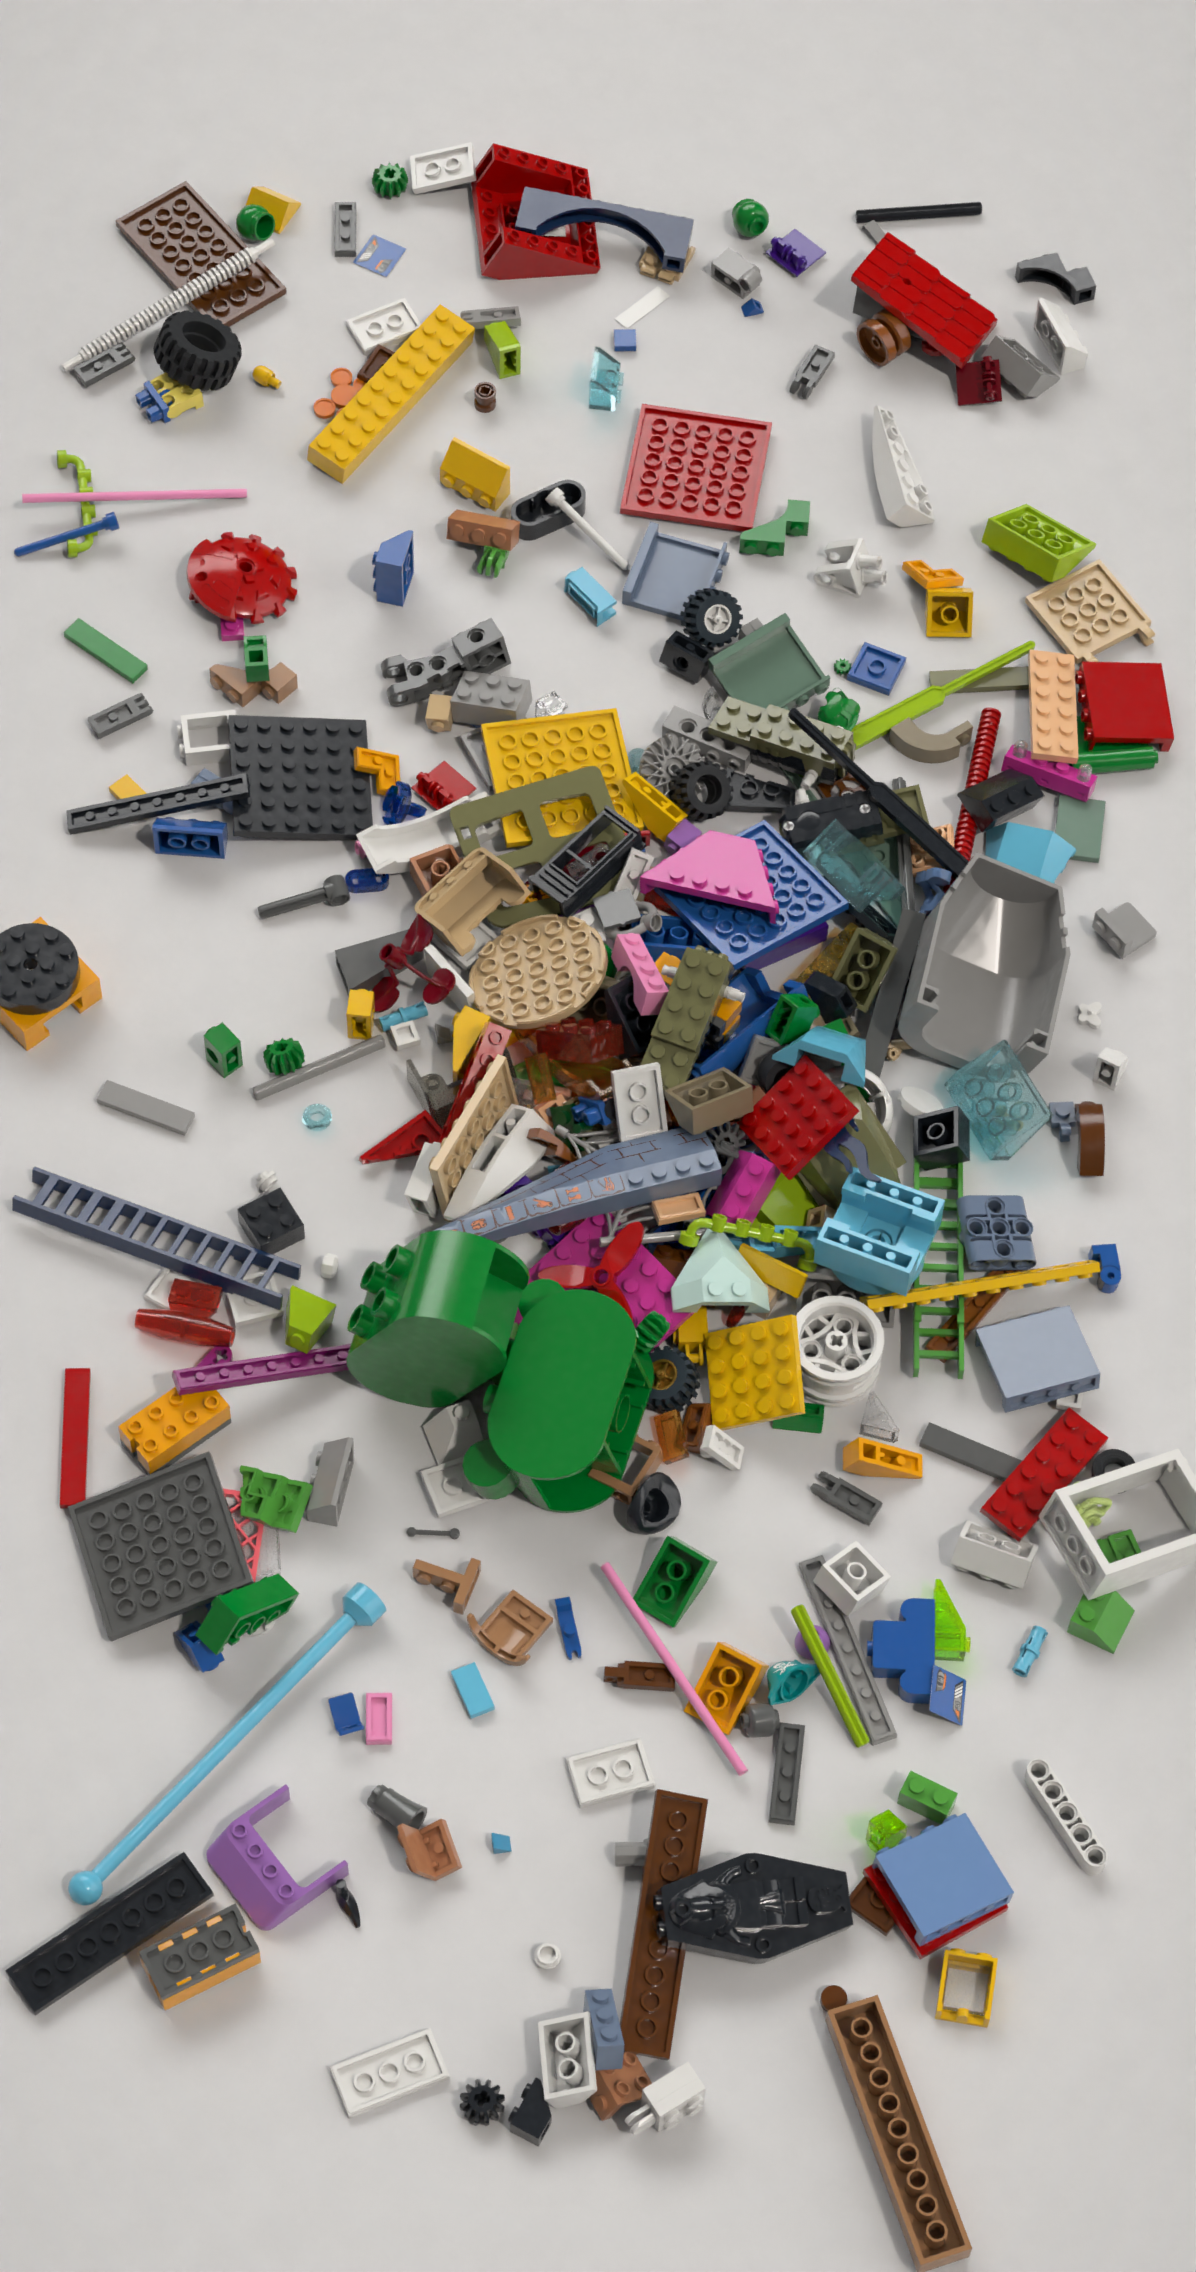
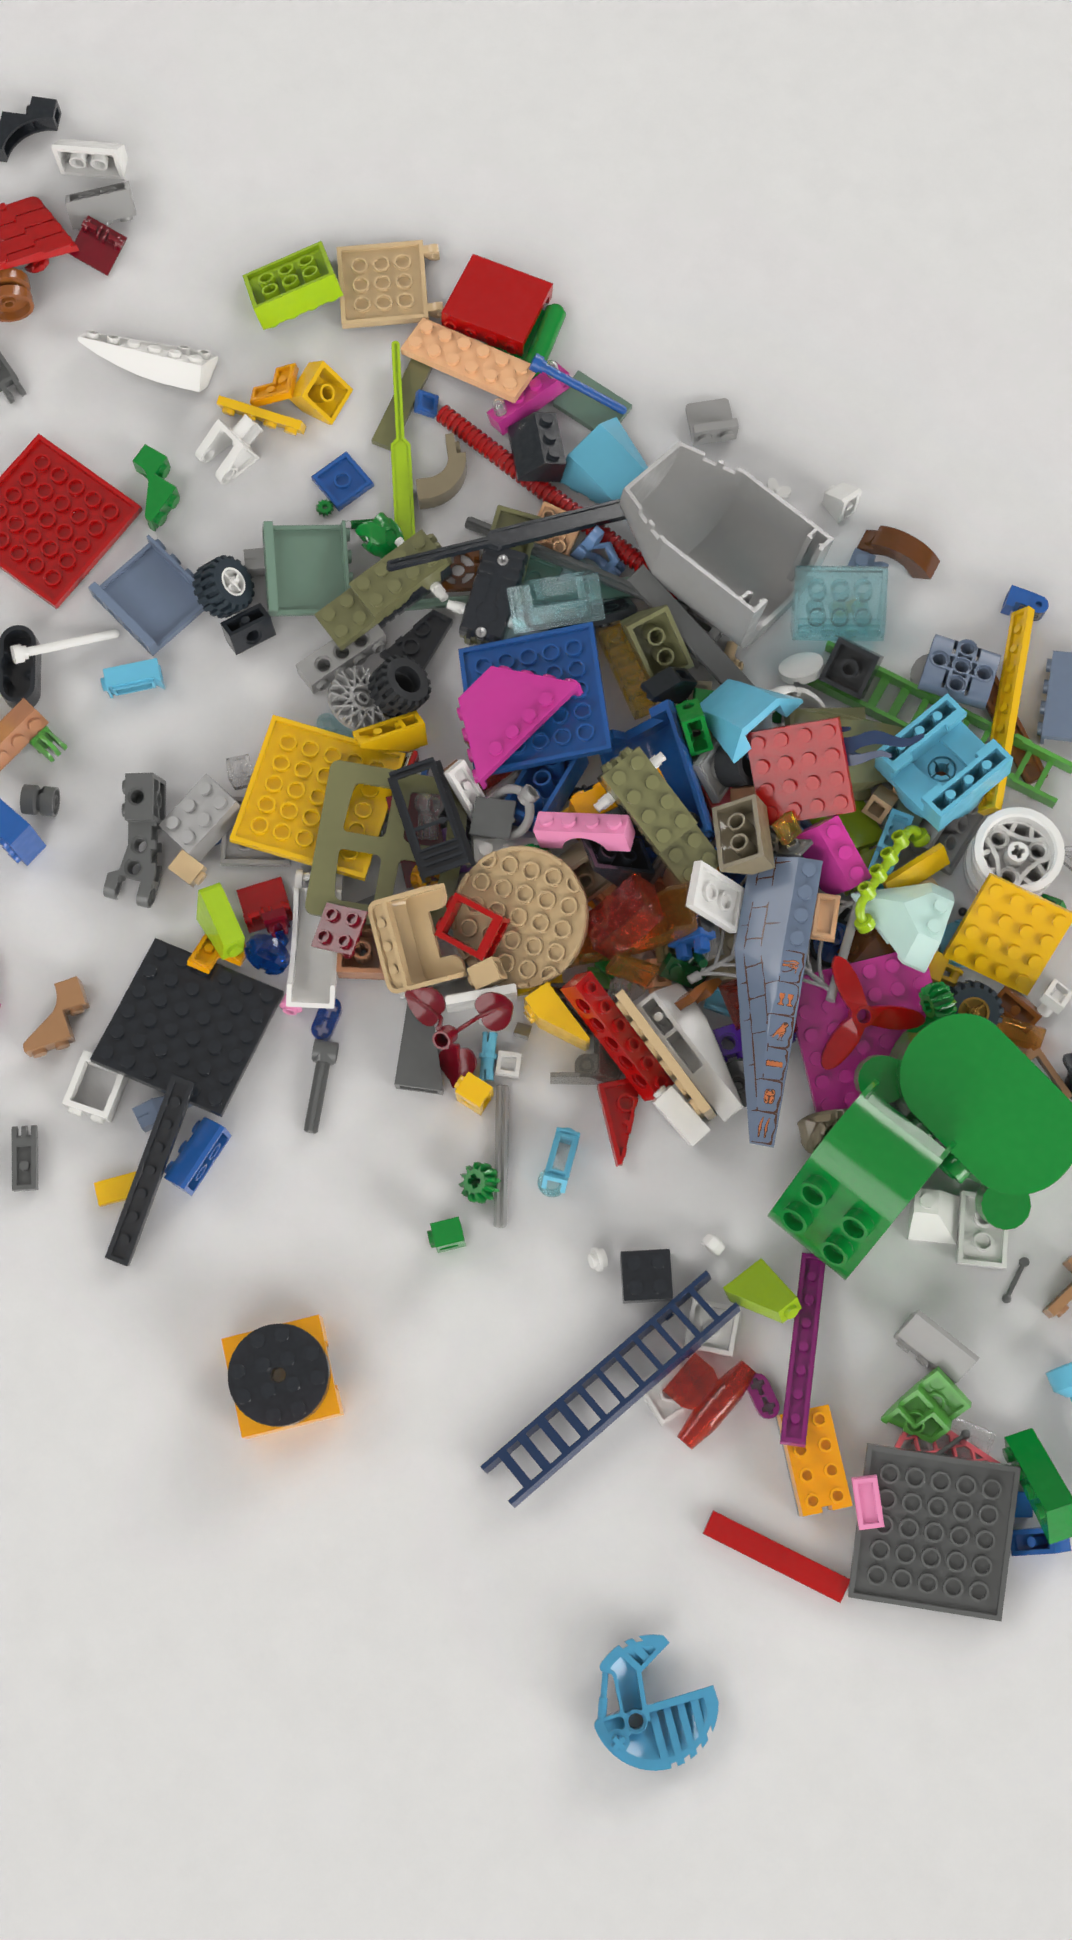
camera: 60 degrees left, 15 degrees up
(145, 1107) = (463, 1332): light grey tile -> none
(158, 1475) = (867, 1502): none -> bright pink tile
(256, 658) = (38, 1004): green arch -> none
(264, 1543) = (965, 1434): none -> dark grey hinge
(339, 1109) = (561, 1157): none -> medium azure window
(404, 753) = (219, 921): none -> lime slope
(430, 797) = (276, 921): none -> dark red tile
(437, 579) = (39, 800): none -> dark grey wheel
(445, 840) = (339, 929): none -> hinge
(473, 970) = (486, 973): none -> tan brick
(520, 953) = (492, 936): none -> red window
(681, 836) = (437, 727): medium lavender brick -> none
(711, 704) = (312, 632): clear brick -> none
(740, 1133) = (787, 828): none -> clear yellow plate
(897, 585) = (269, 418): none -> yellow plate
(992, 696) = (426, 403): none -> blue tile
(1077, 756) = (540, 365): none -> blue piece

